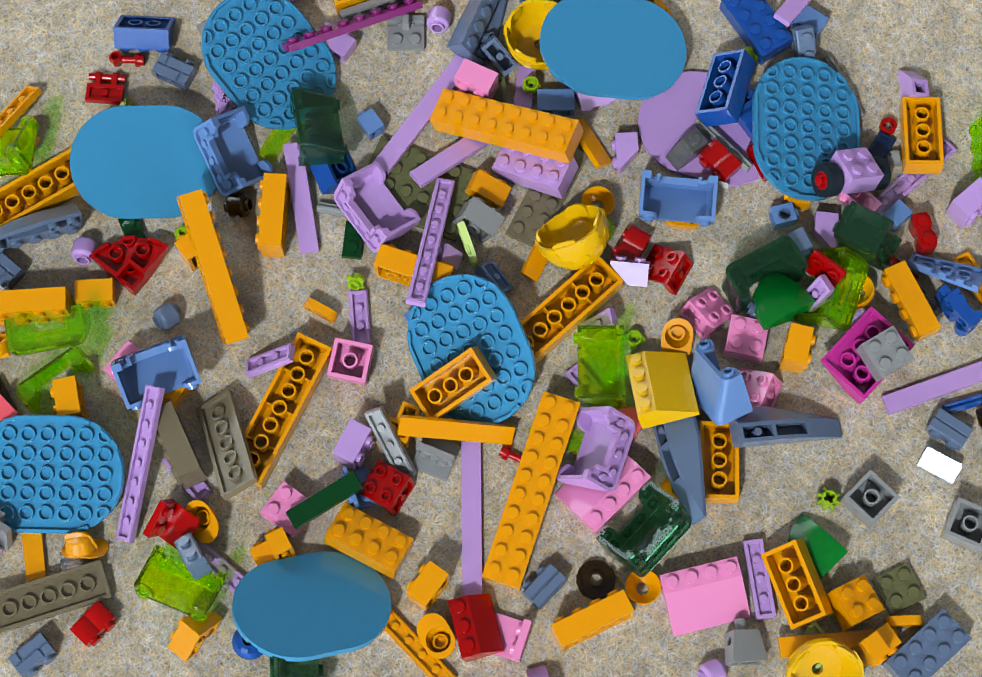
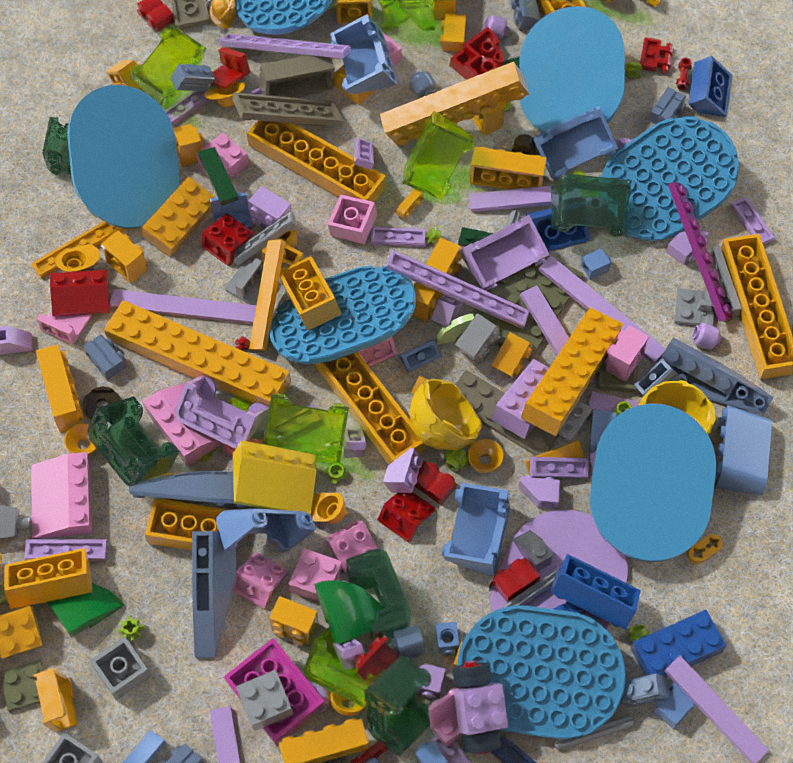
camera: 95 degrees right, 10 degrees down
(269, 286) = (436, 156): none -> clear neon green windscreen
(598, 136) = (559, 467): none -> lavender tile
(913, 549) = (56, 700): none -> light orange piece

